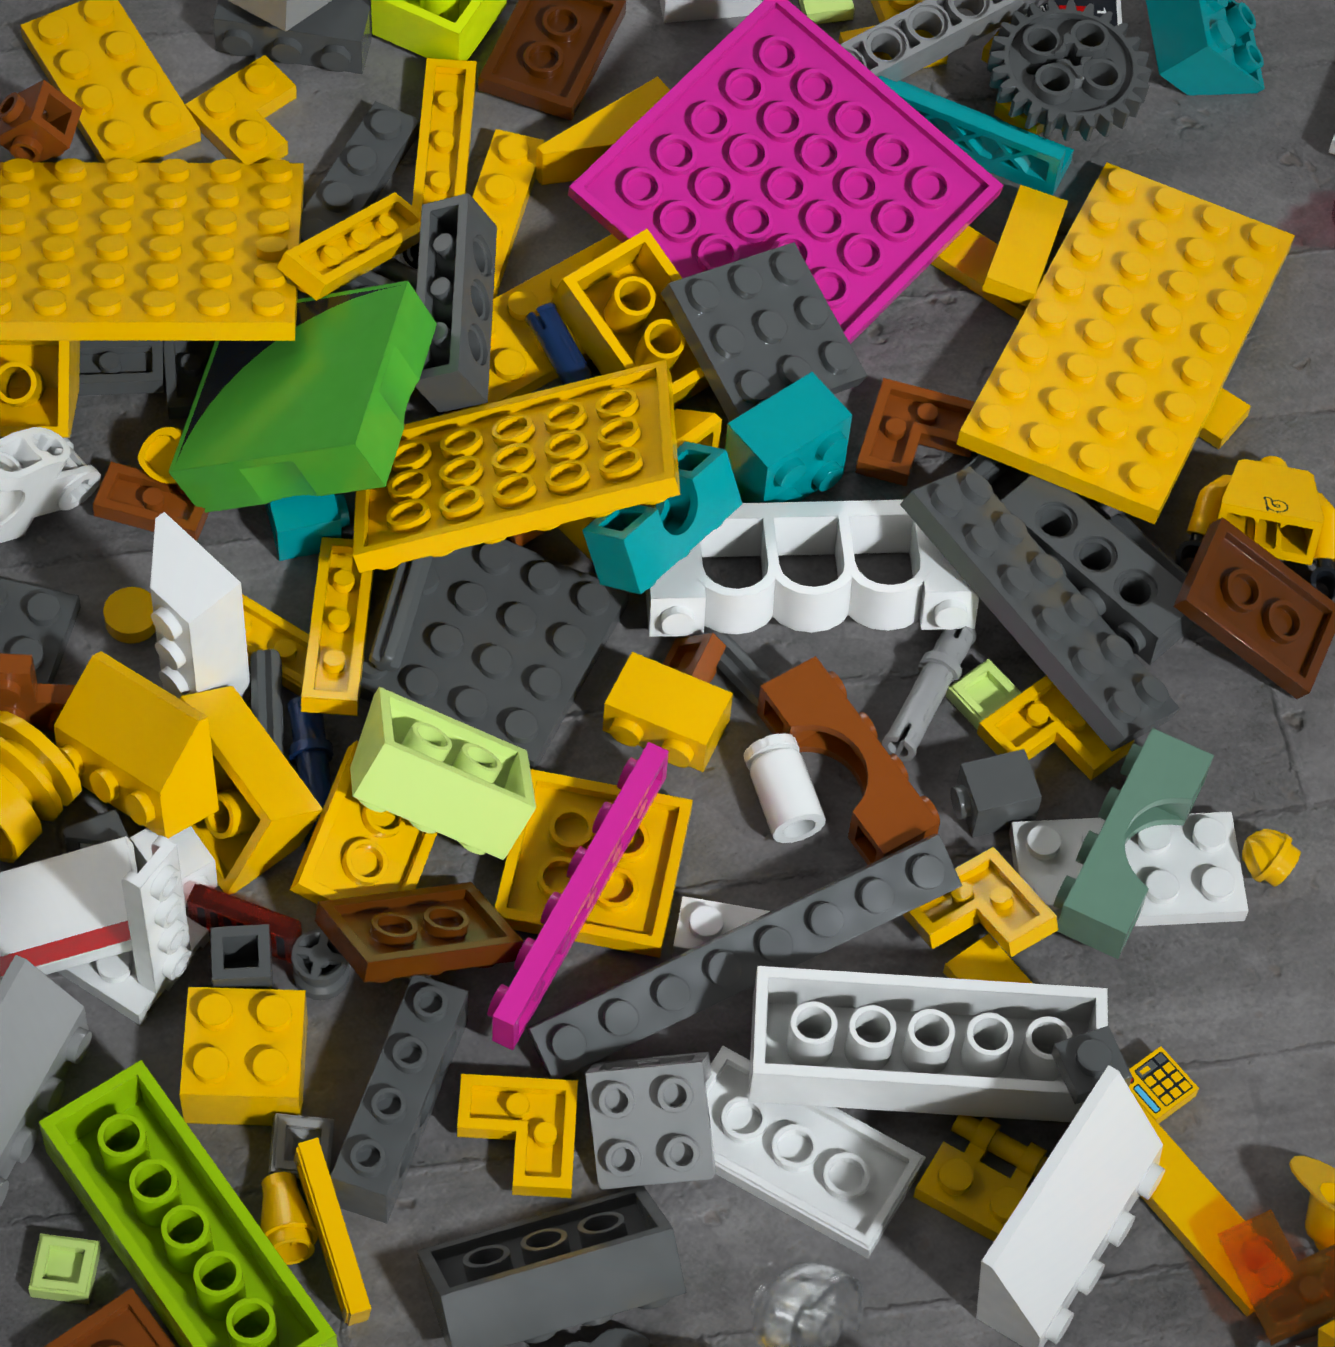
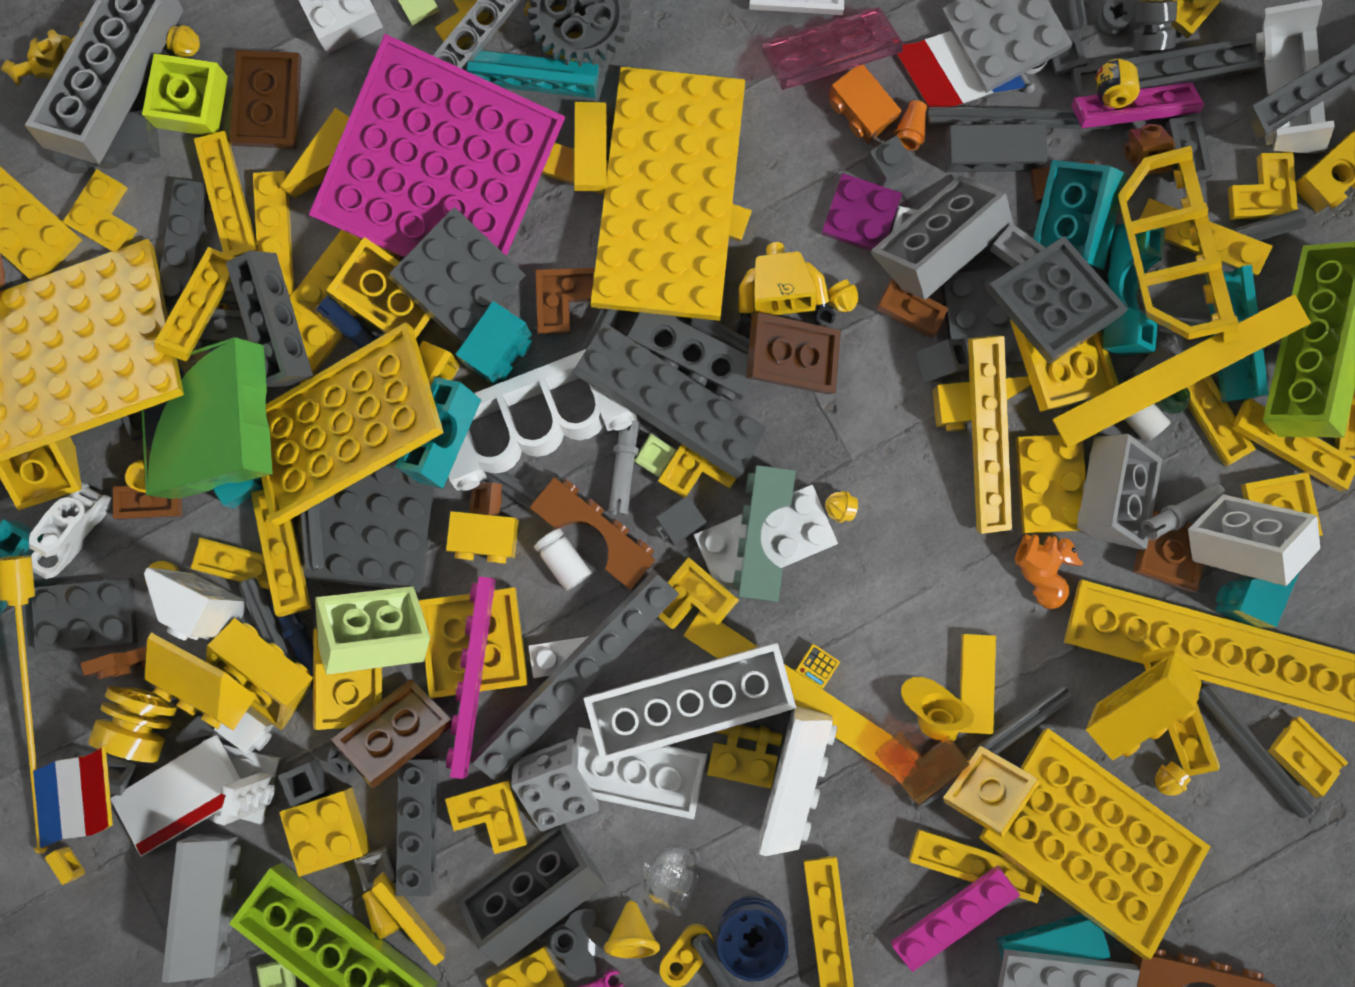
camera: 15 degrees left, 25 degrees up
(219, 909) = (295, 750): clear red tile -> none
(1085, 1060) = (783, 696): dark grey plate -> none

